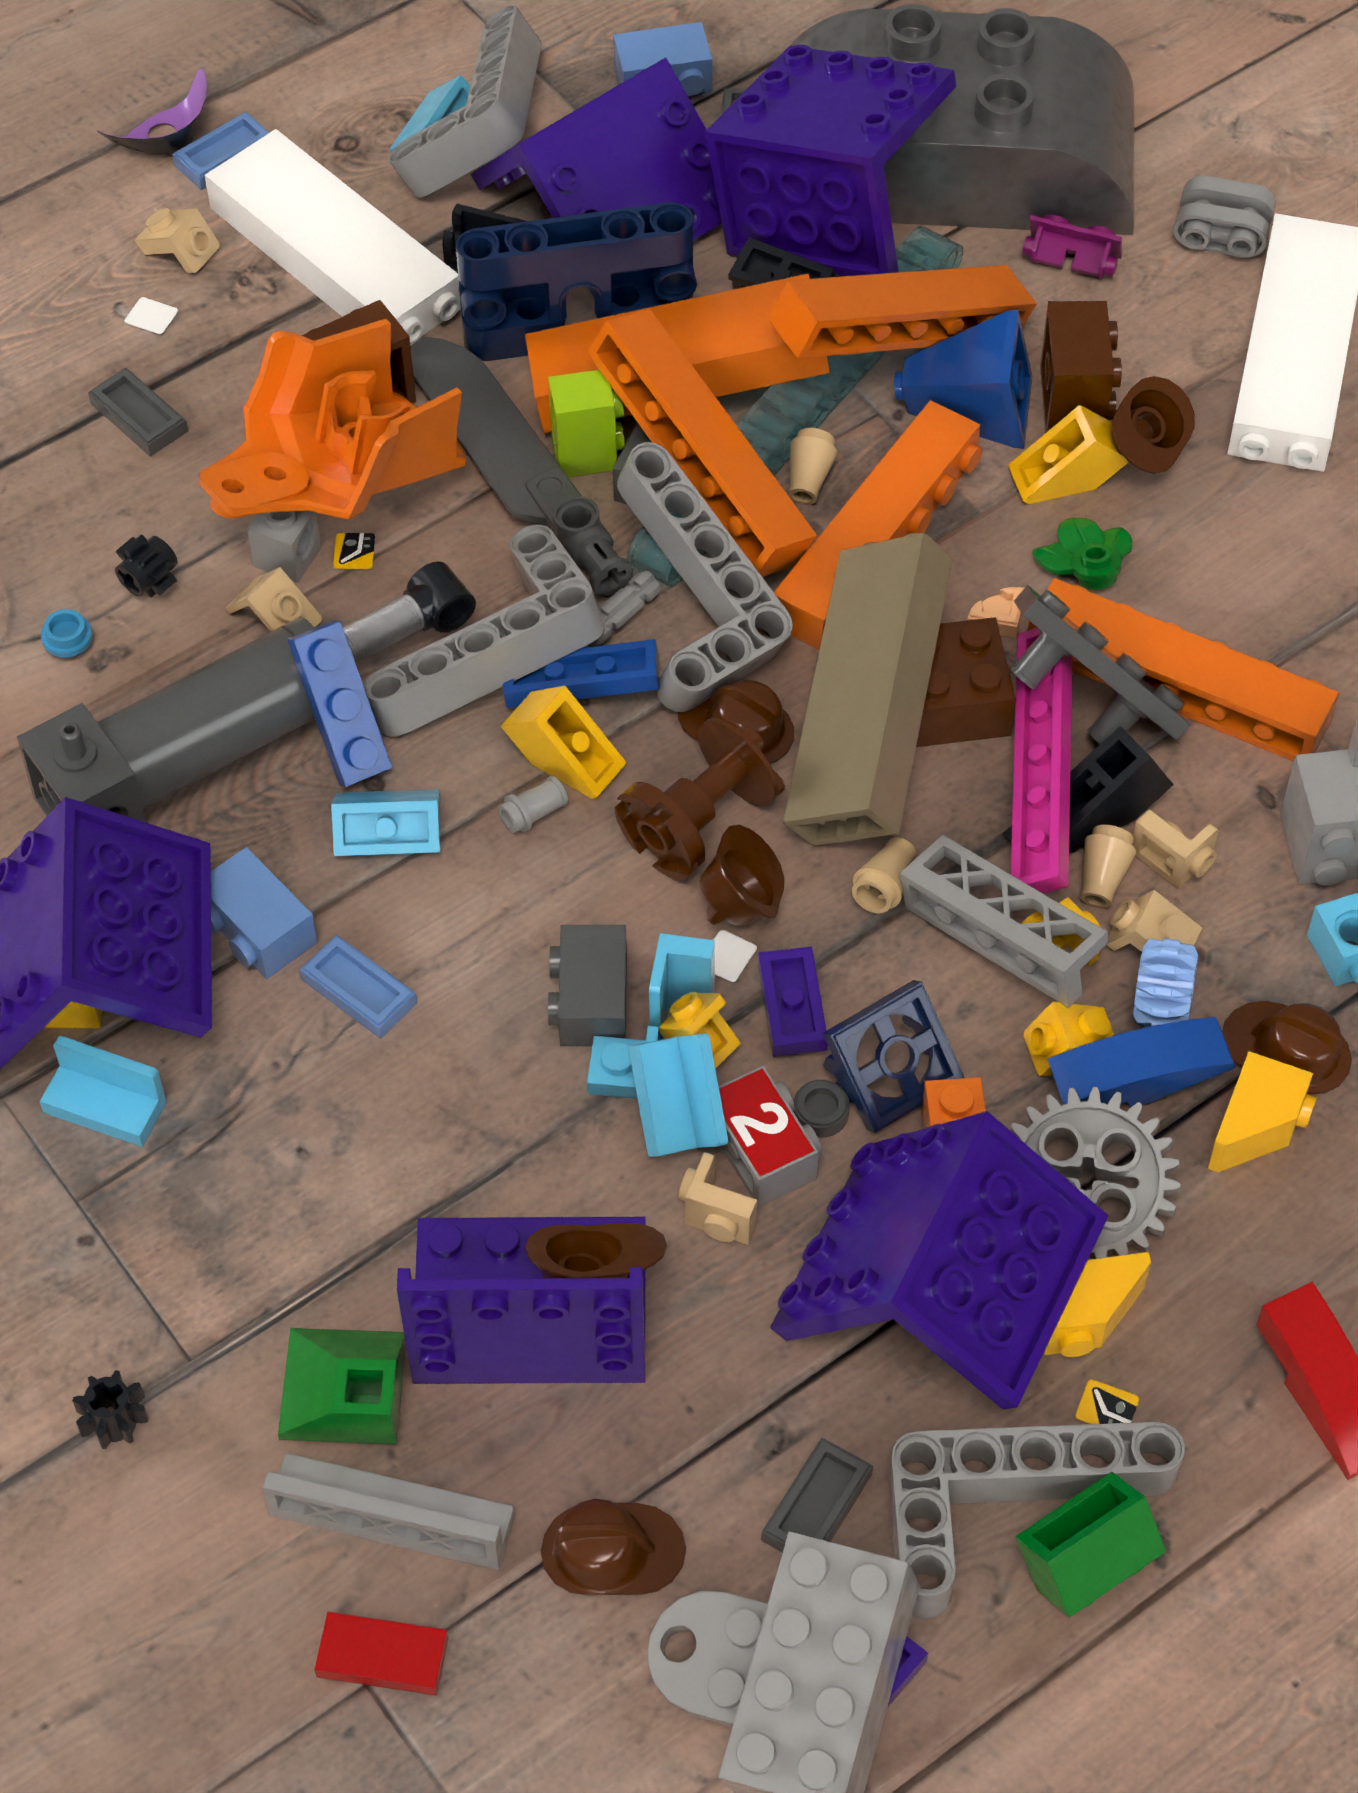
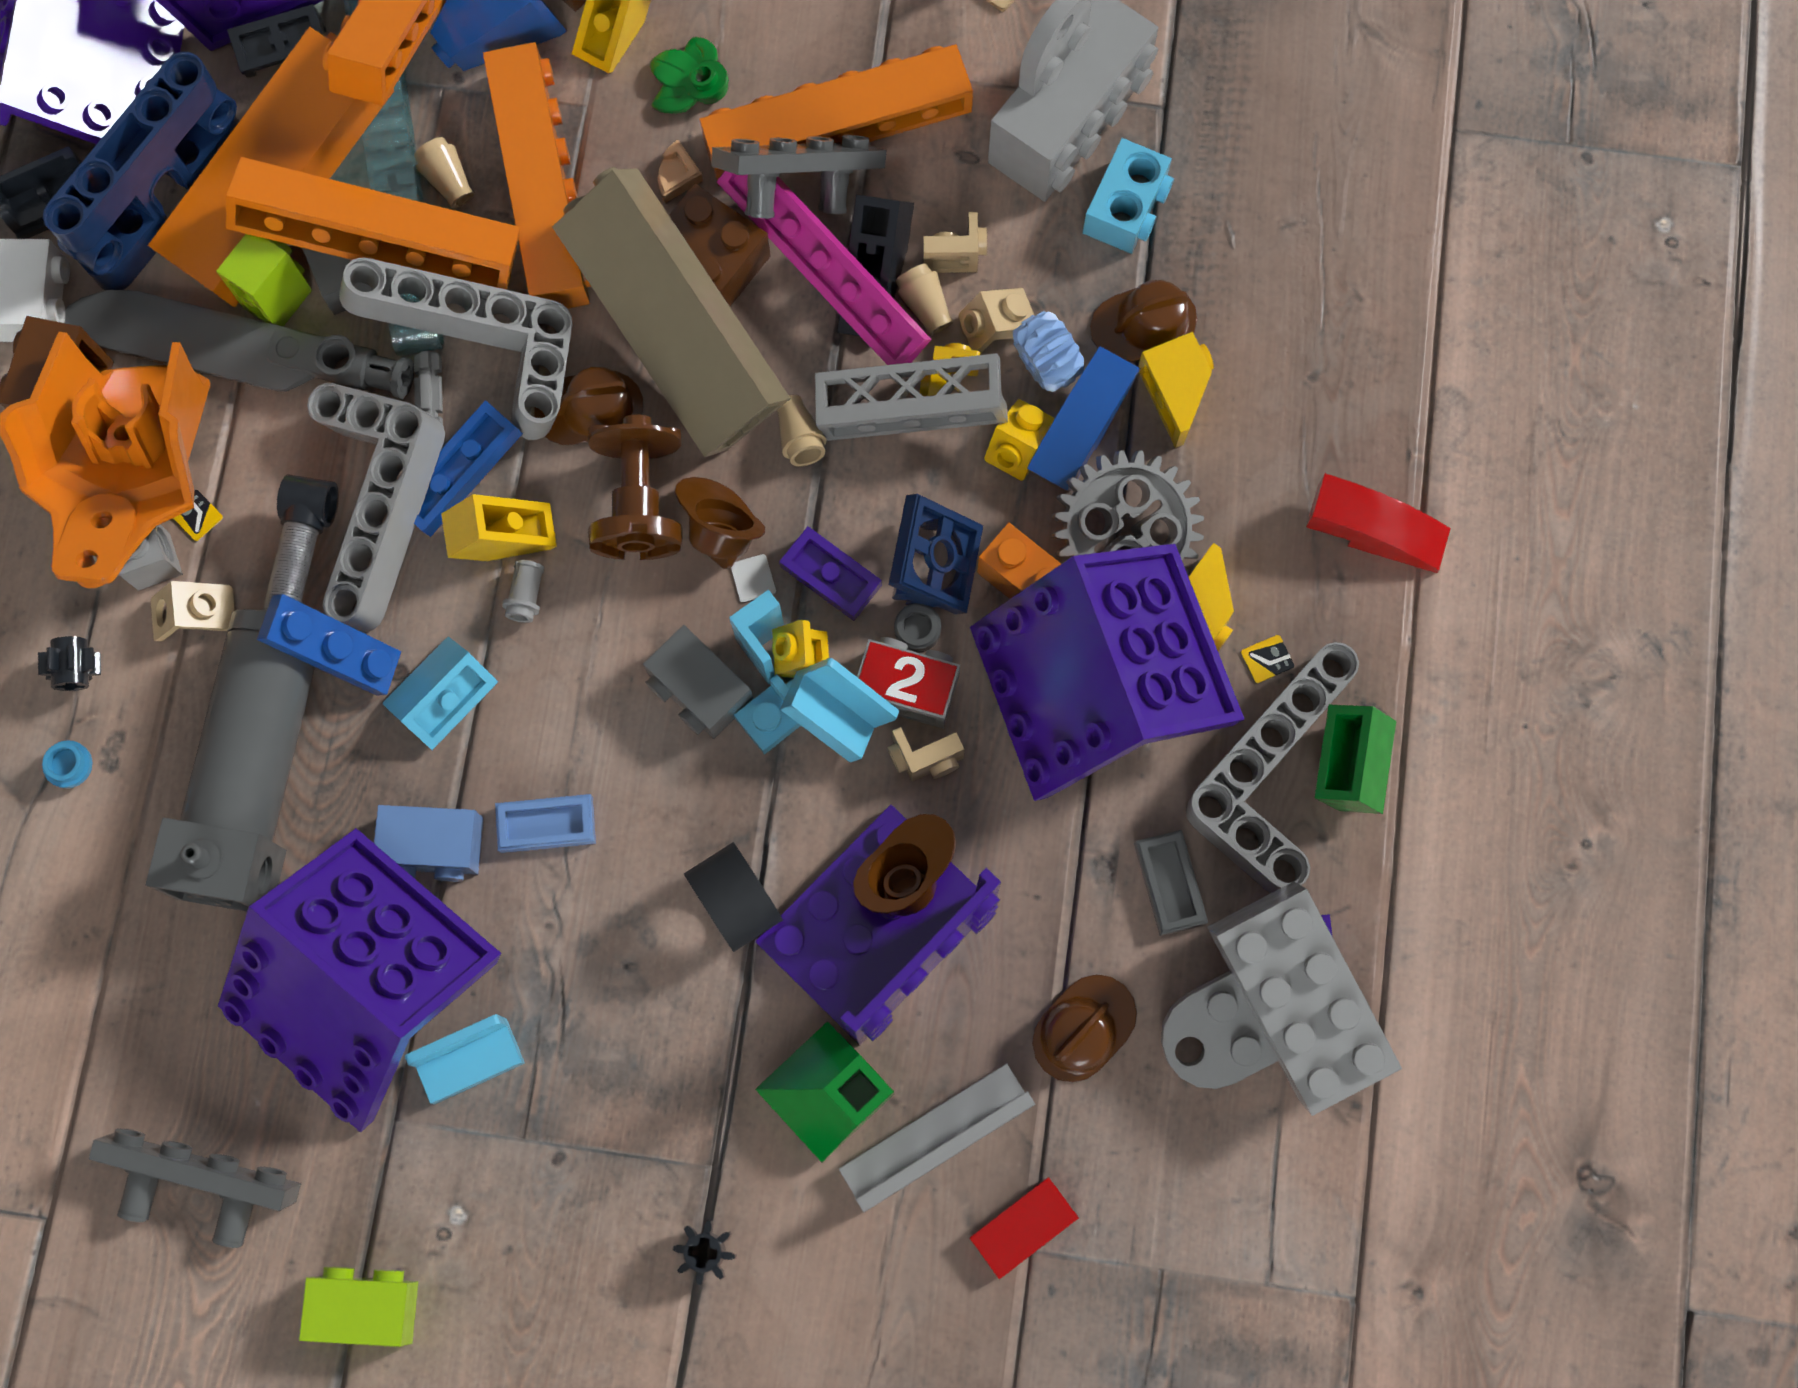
camera: 45 degrees left, 20 degrees up
(435, 1158) = (733, 896): none -> black piece

